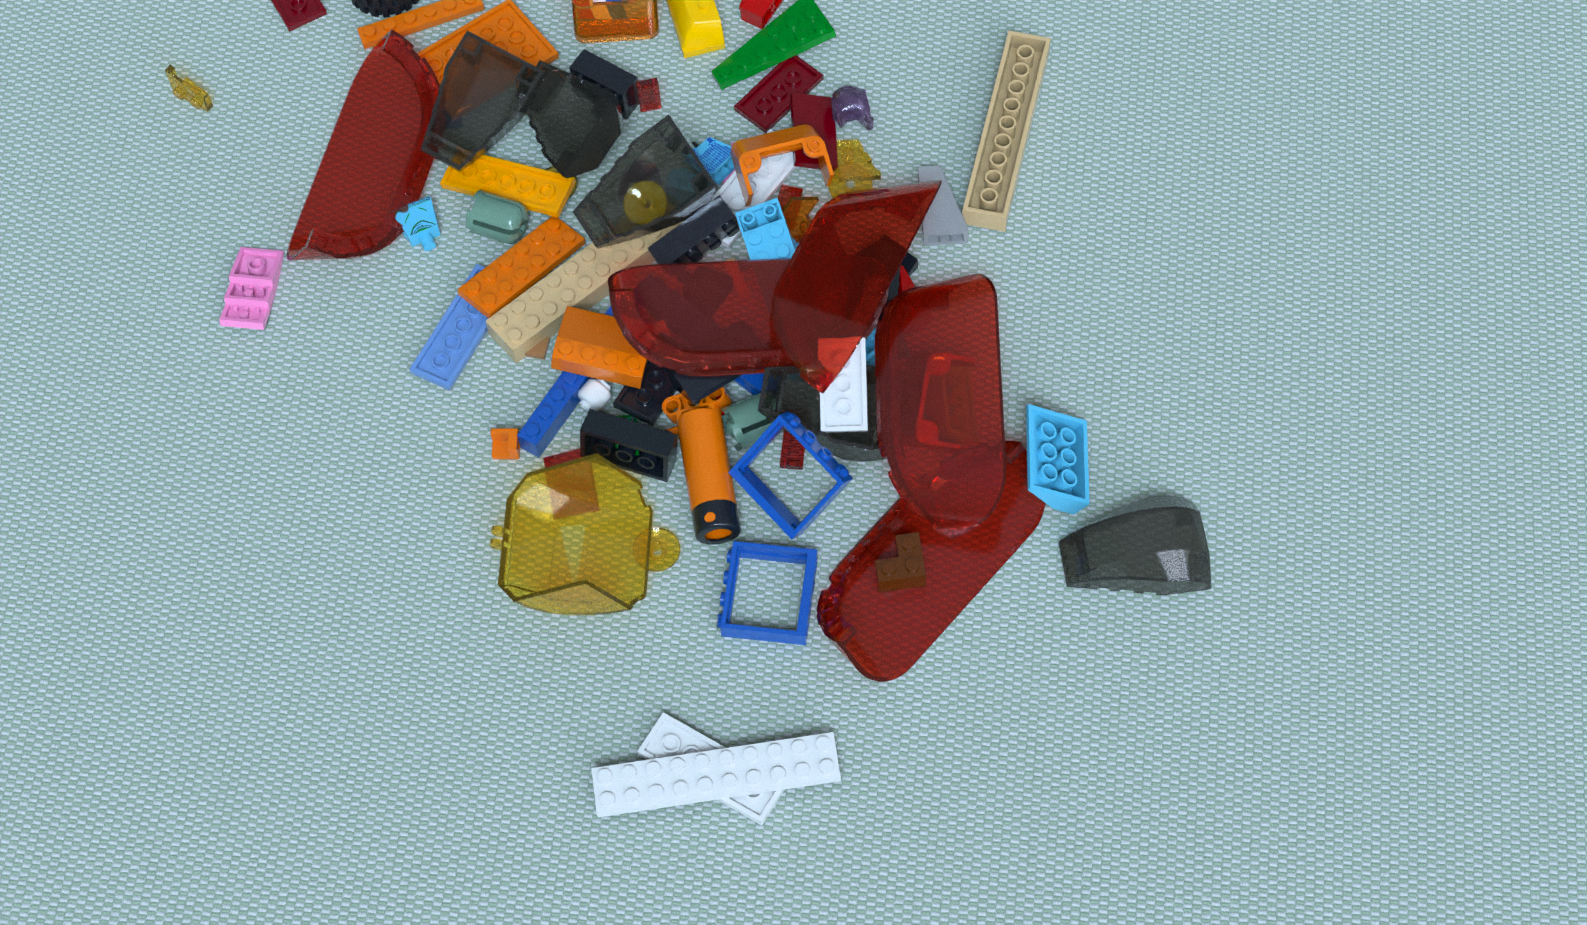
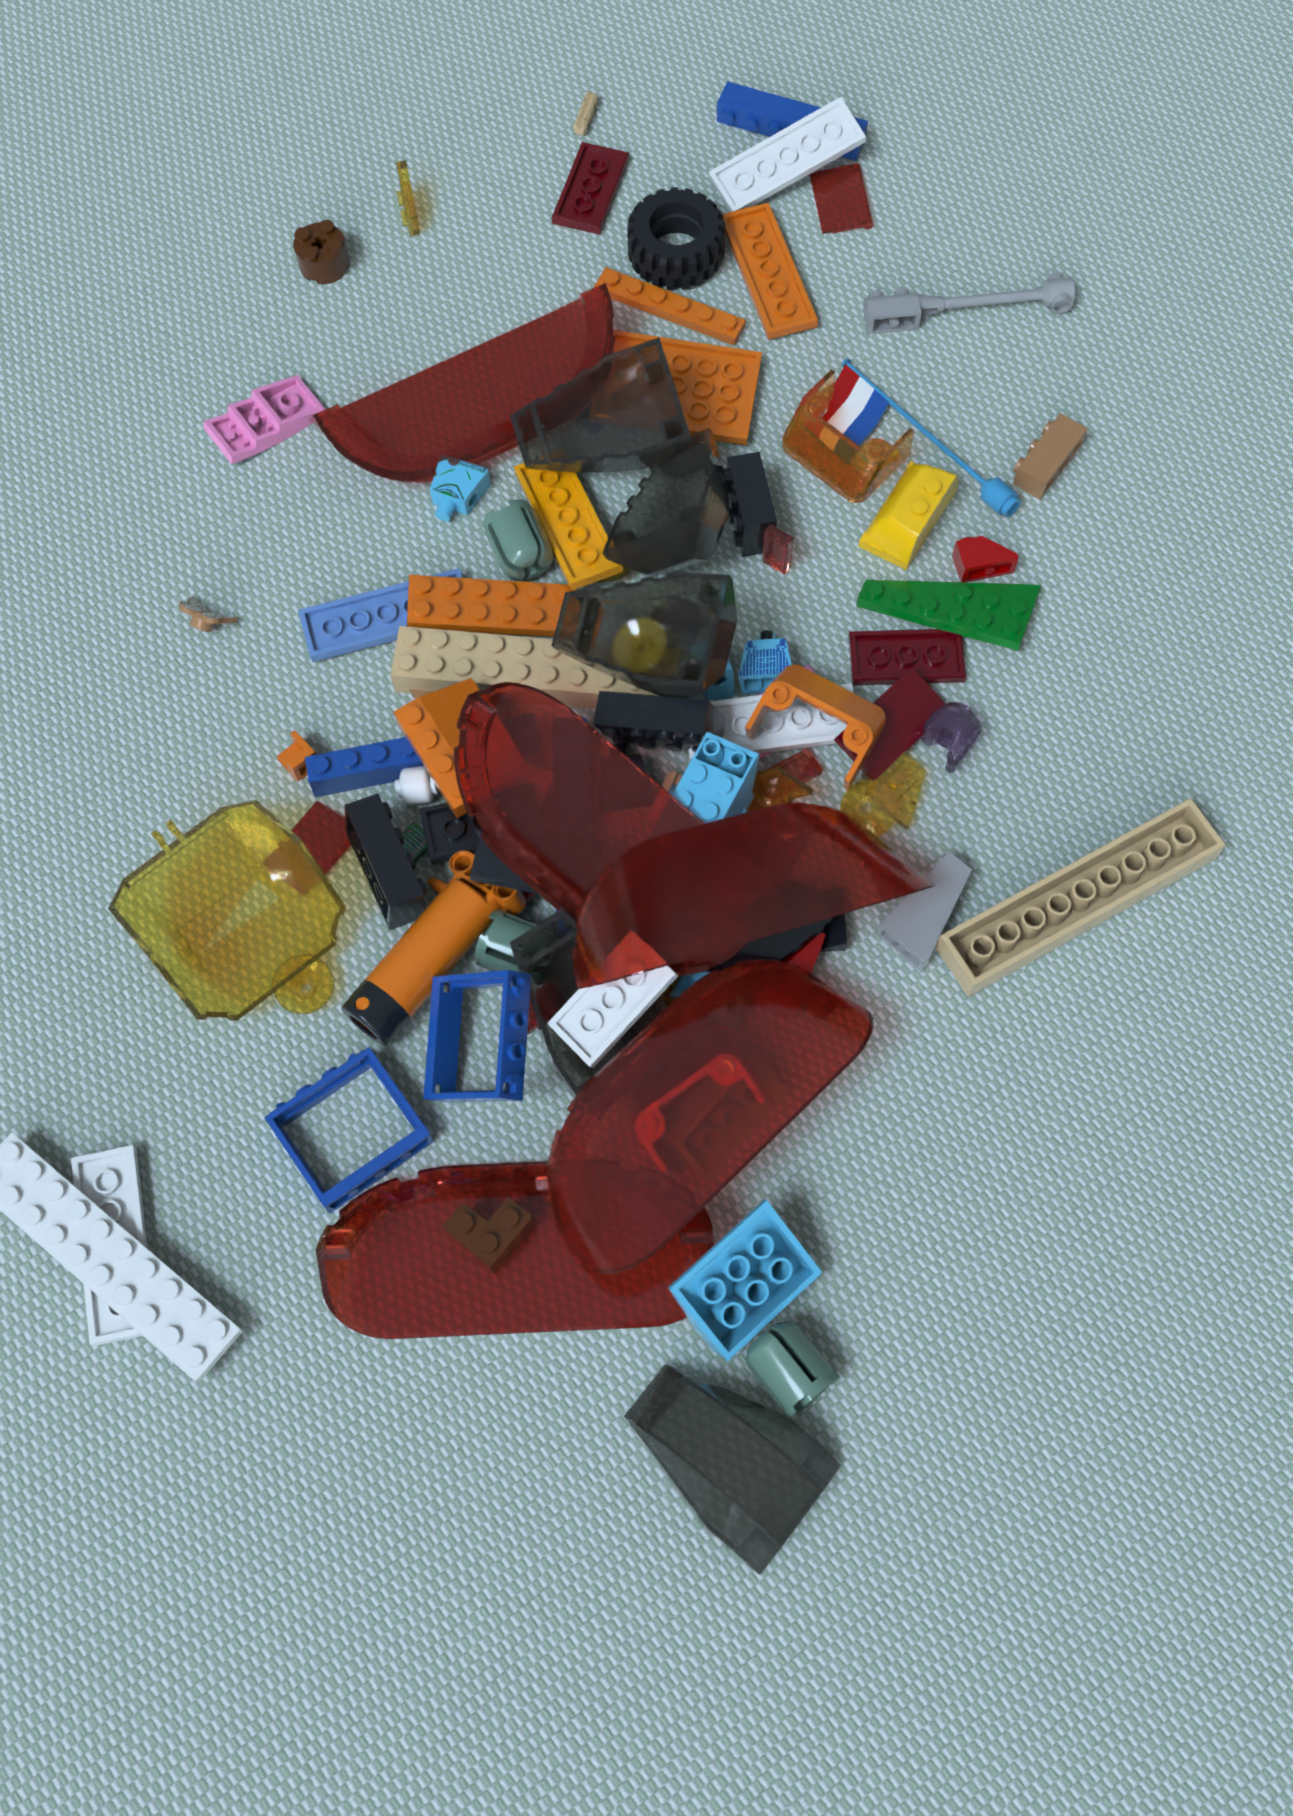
camera: 45 degrees right, 5 degrees up
(169, 165) = (321, 252): none -> reddish brown brick
(356, 424) = (202, 617): none -> medium nougat animal
(1120, 477) = (789, 1367): none -> sand green cylinder

